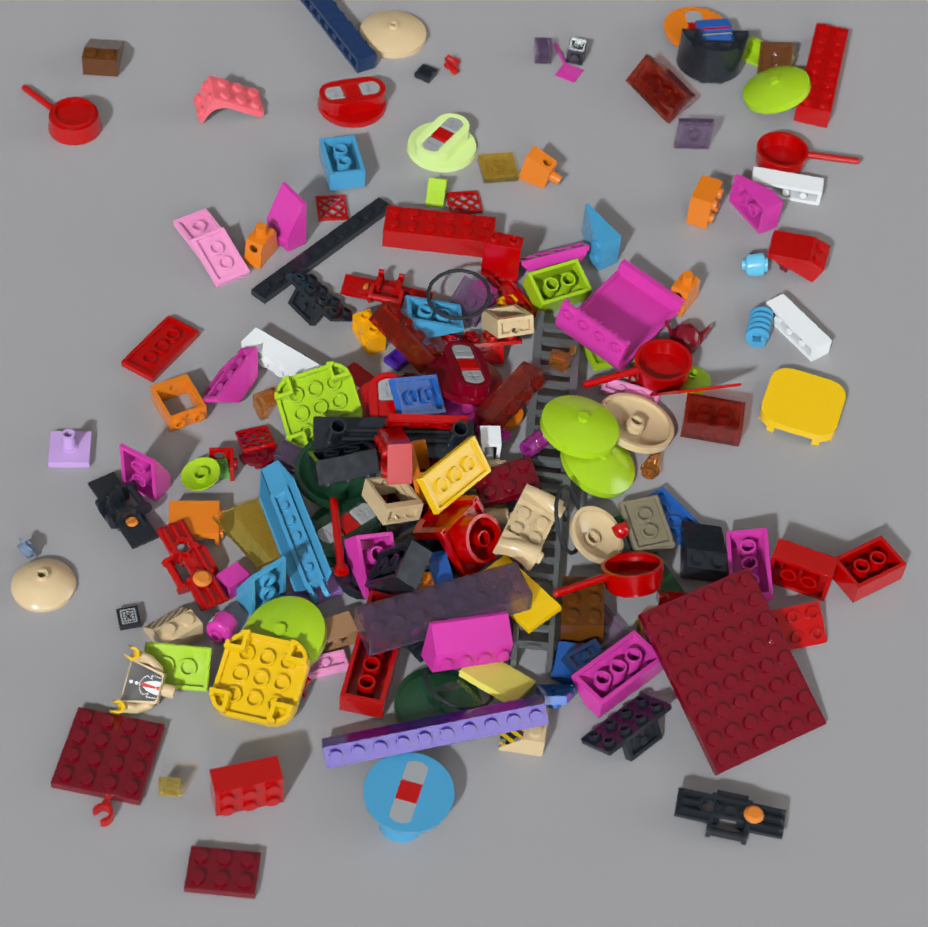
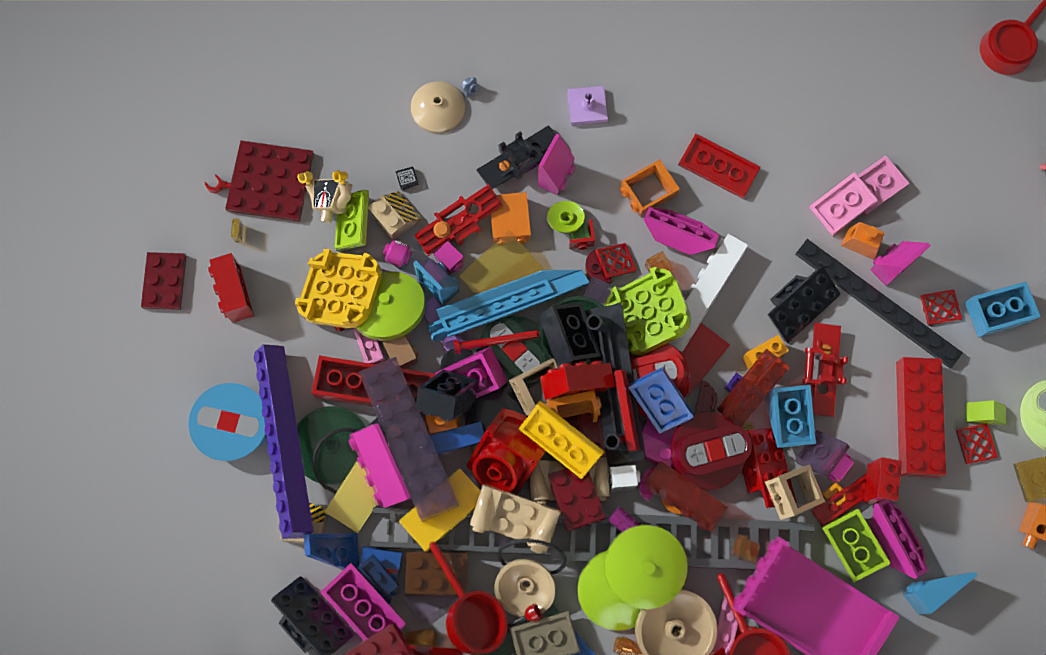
camera: 90 degrees right, 25 degrees up
(458, 317) = (811, 467): black piece -> none

